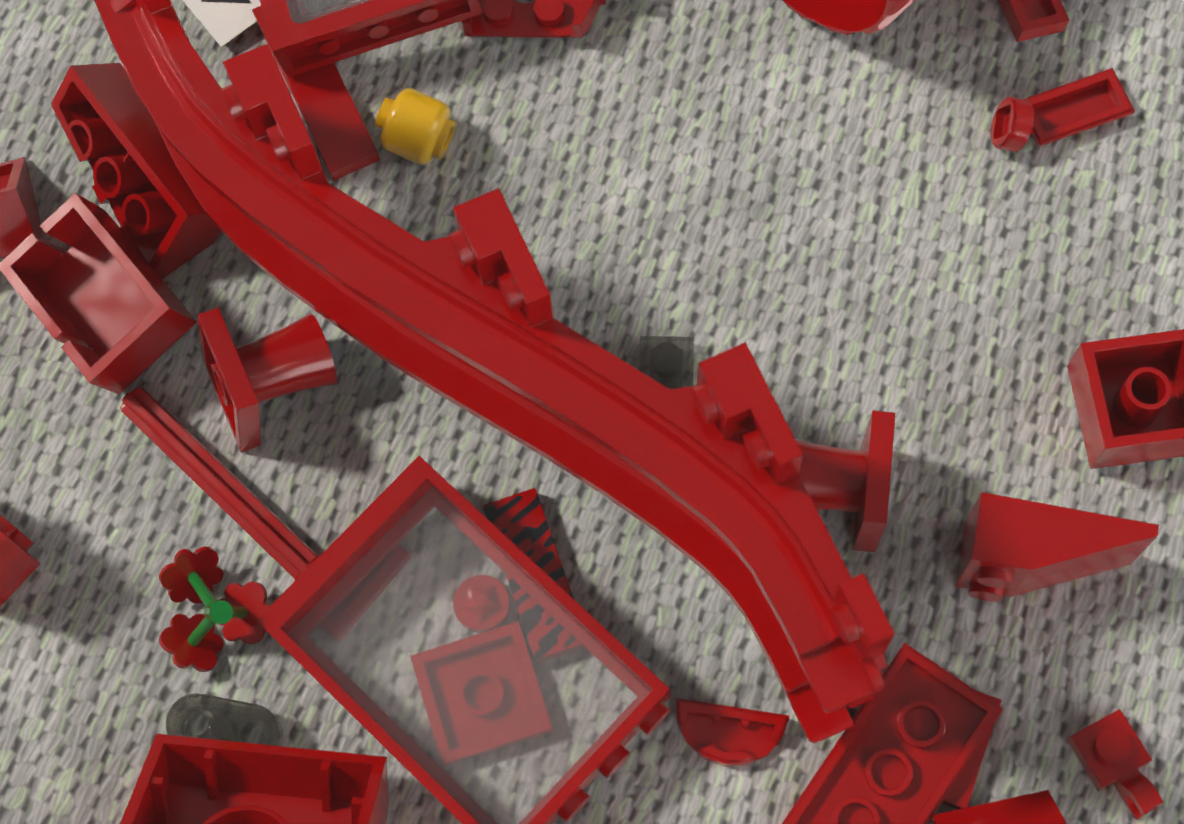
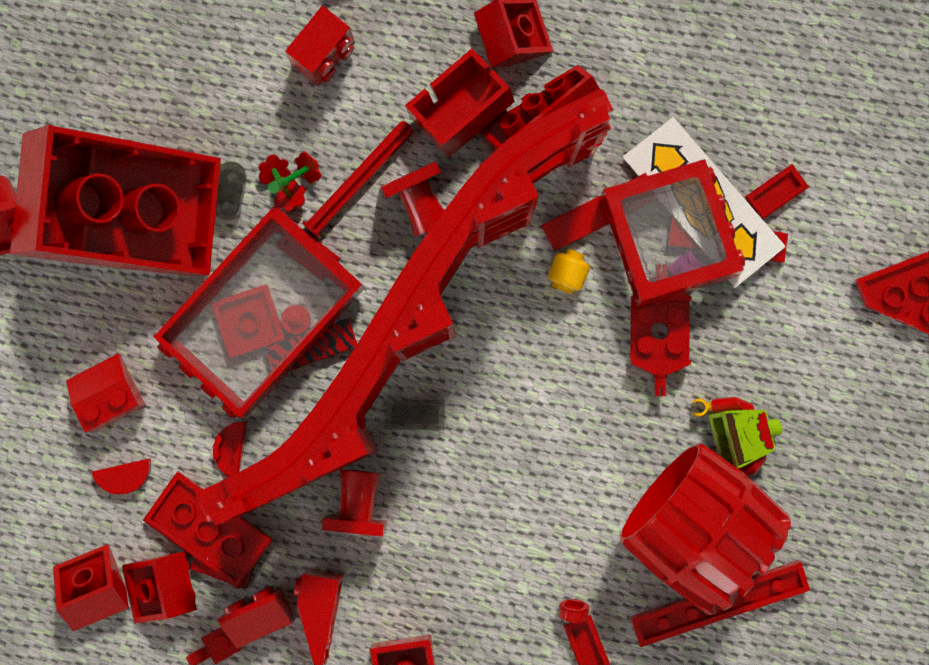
camera: 85 degrees right, 15 degrees up
(1052, 671) = (257, 618): none -> red slope

